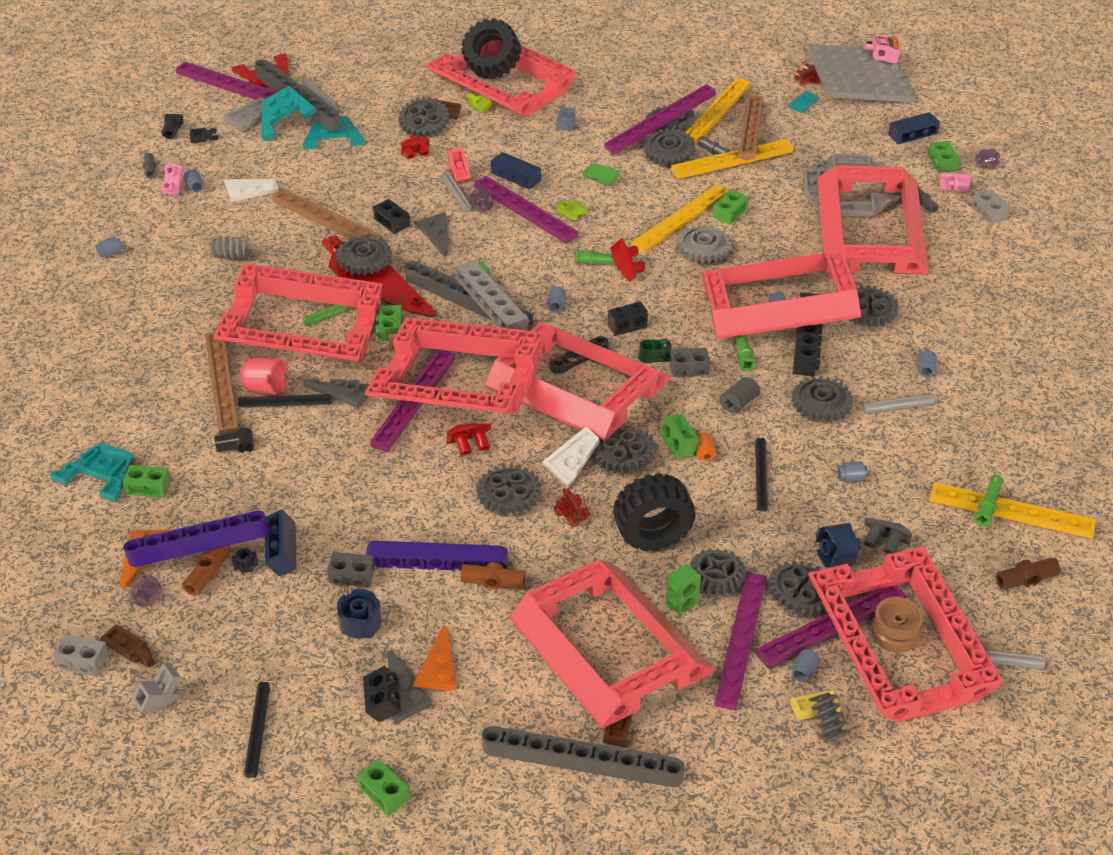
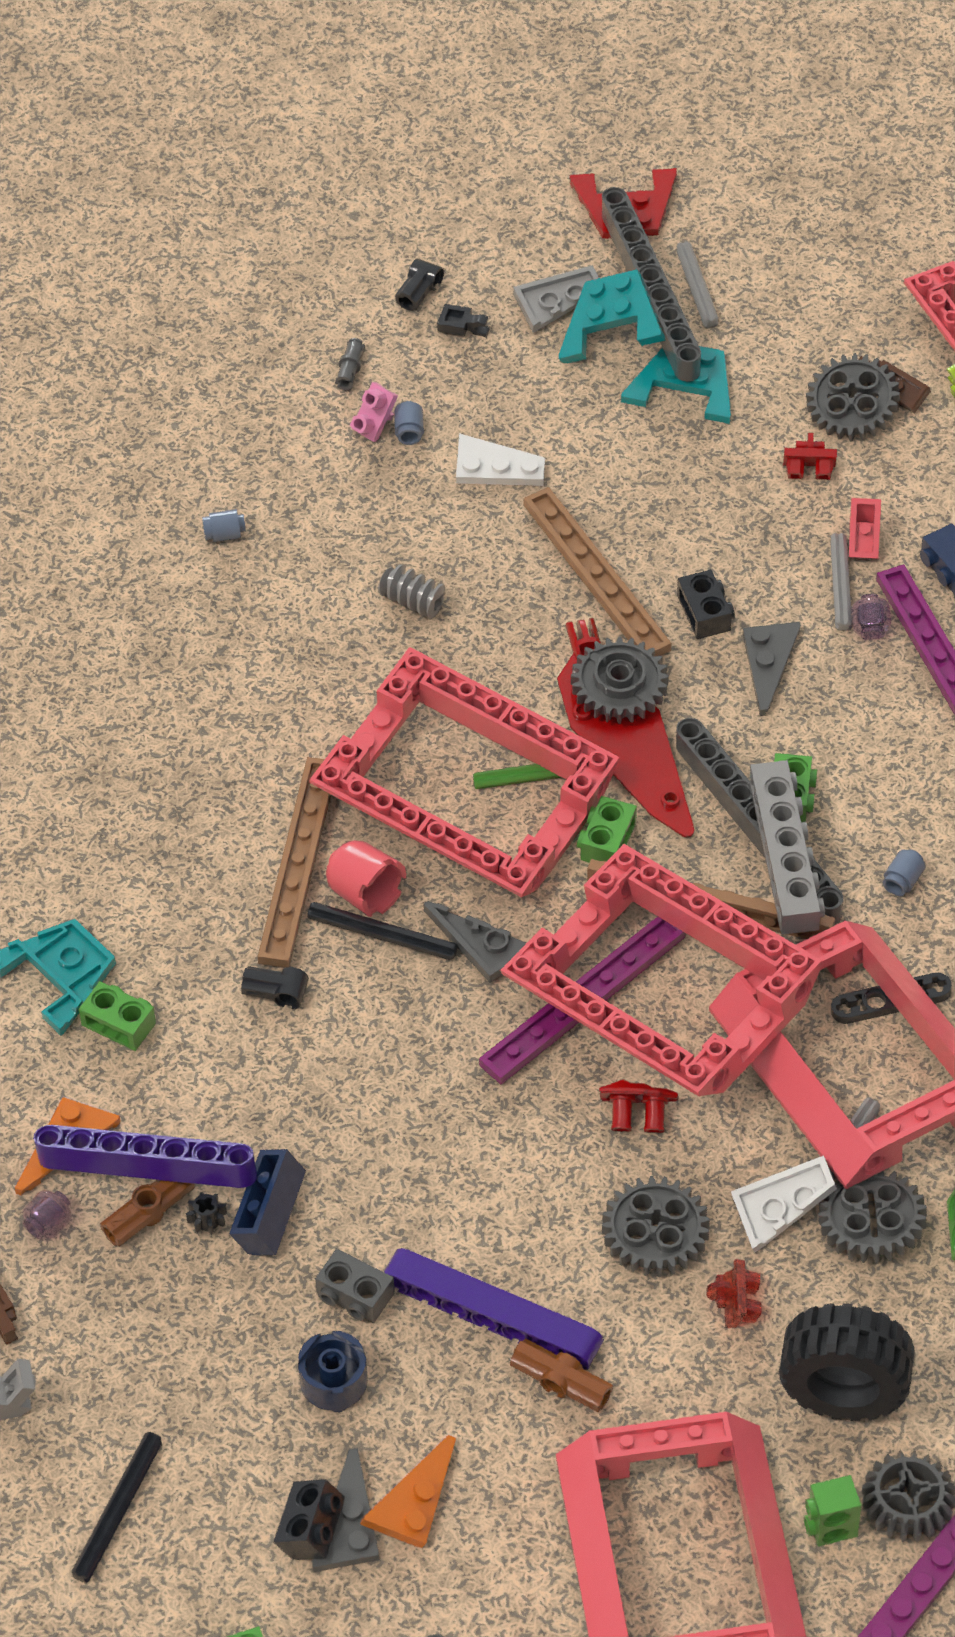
camera: 25 degrees right, 10 degrees up
(224, 81) = (548, 210): magenta plate -> none

